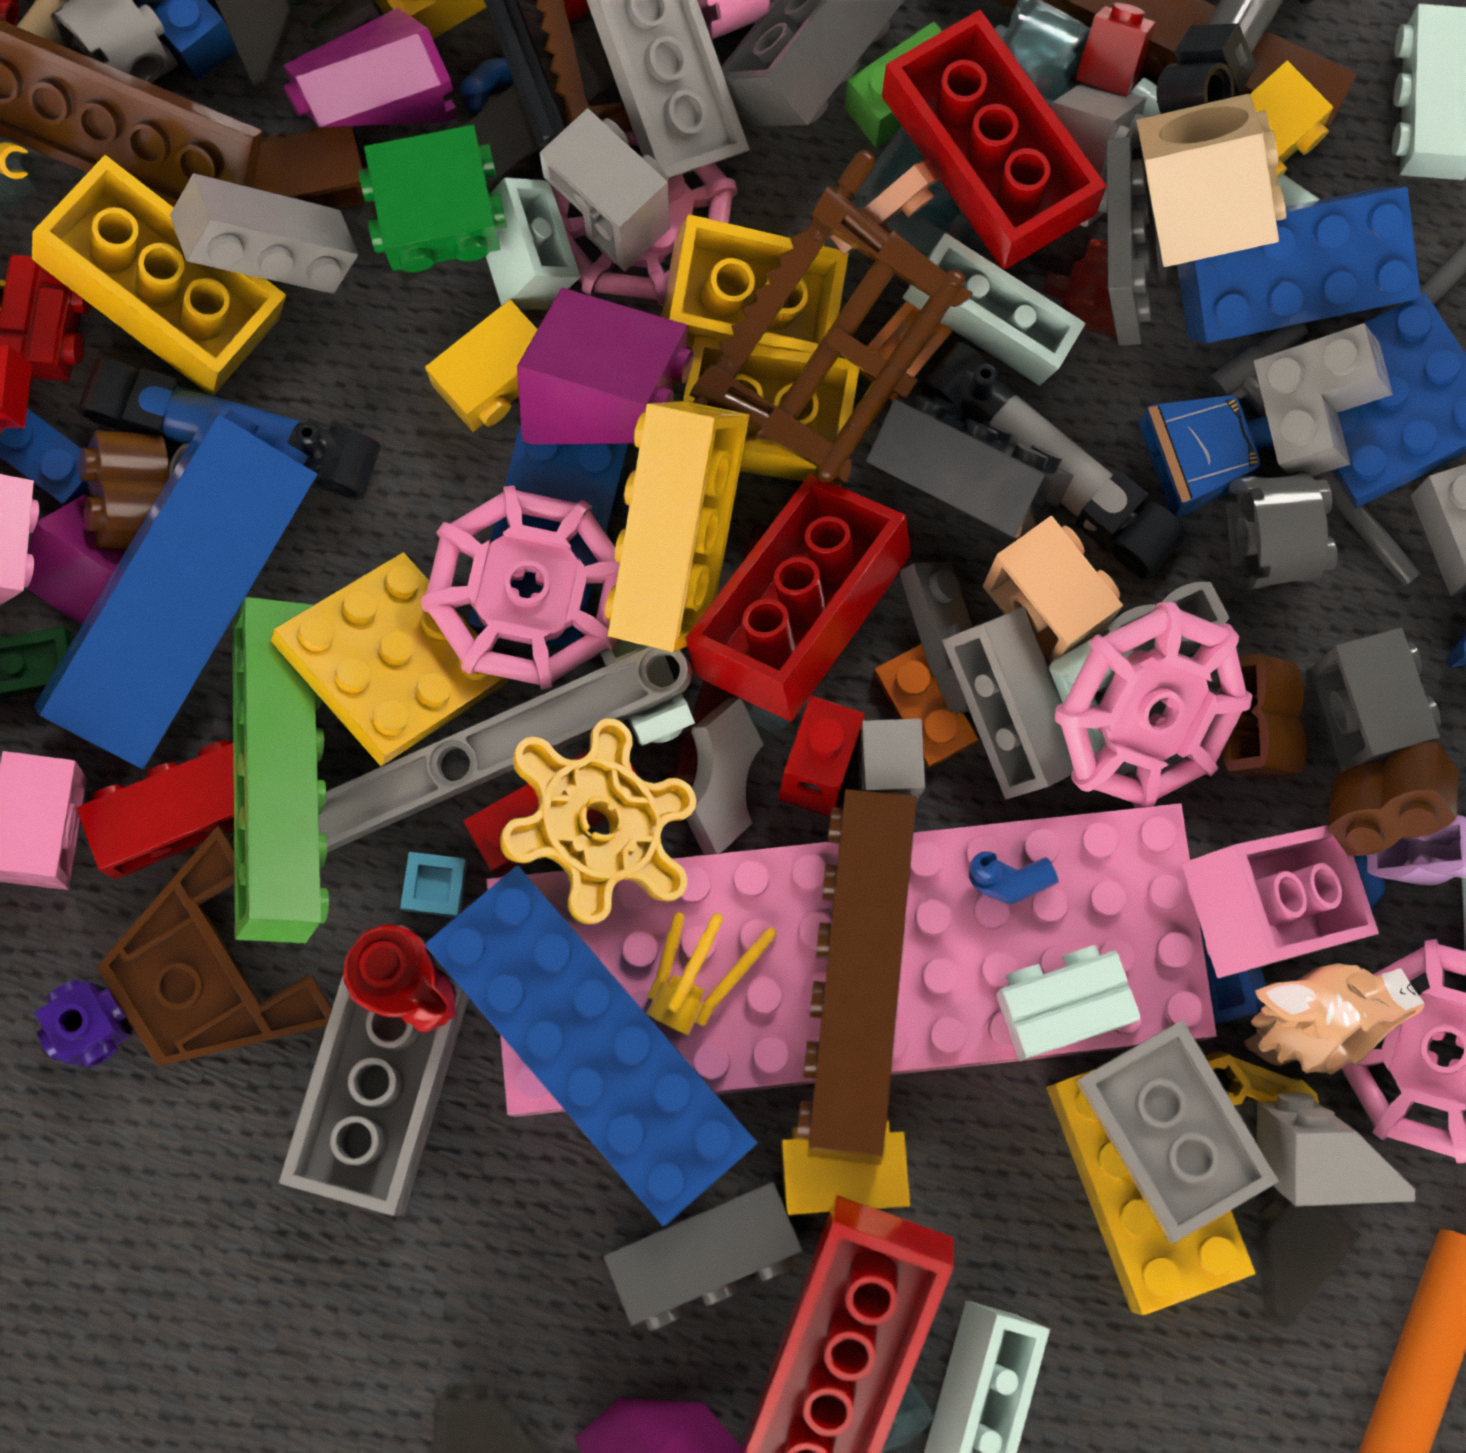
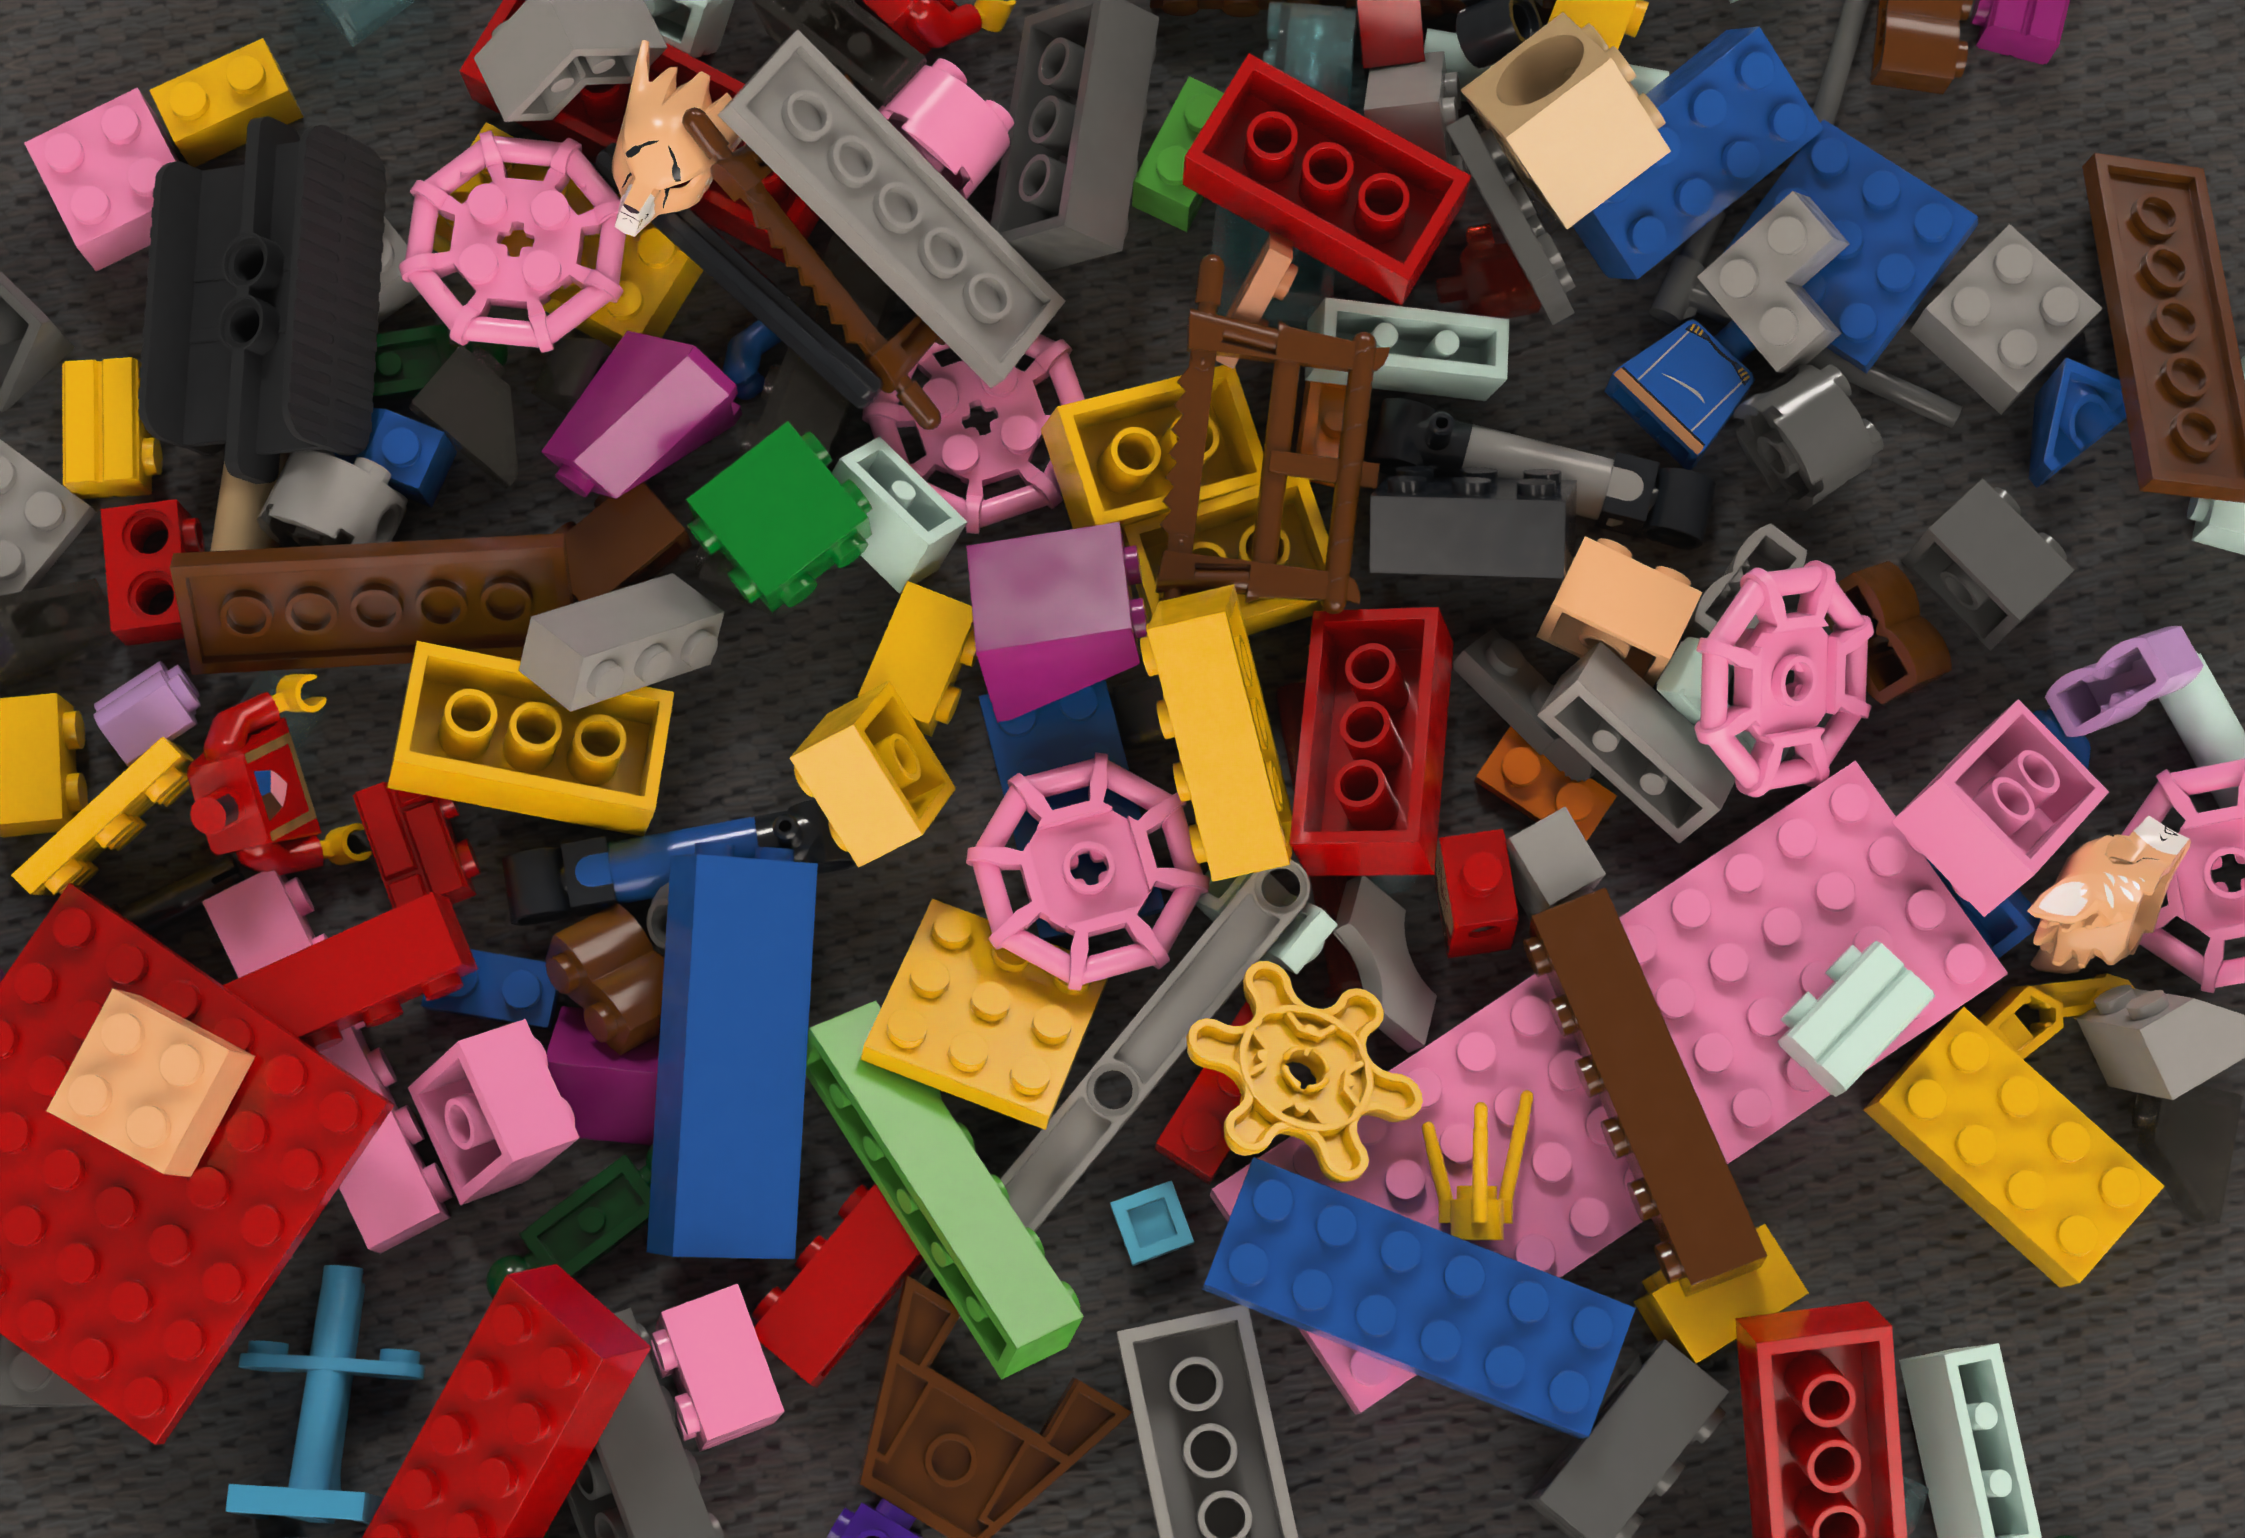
camera: 30 degrees left, 0 degrees up
(398, 428) = (872, 775): none -> yellow brick
(398, 977) = (1188, 1331): red hair -> none
(613, 187) = (957, 414): light grey brick -> none
(1007, 883) = (1733, 927): blue arm -> none
(1176, 1131) = (2022, 1086): light grey plate -> none
(1393, 799) = (2059, 653): reddish brown brick -> none

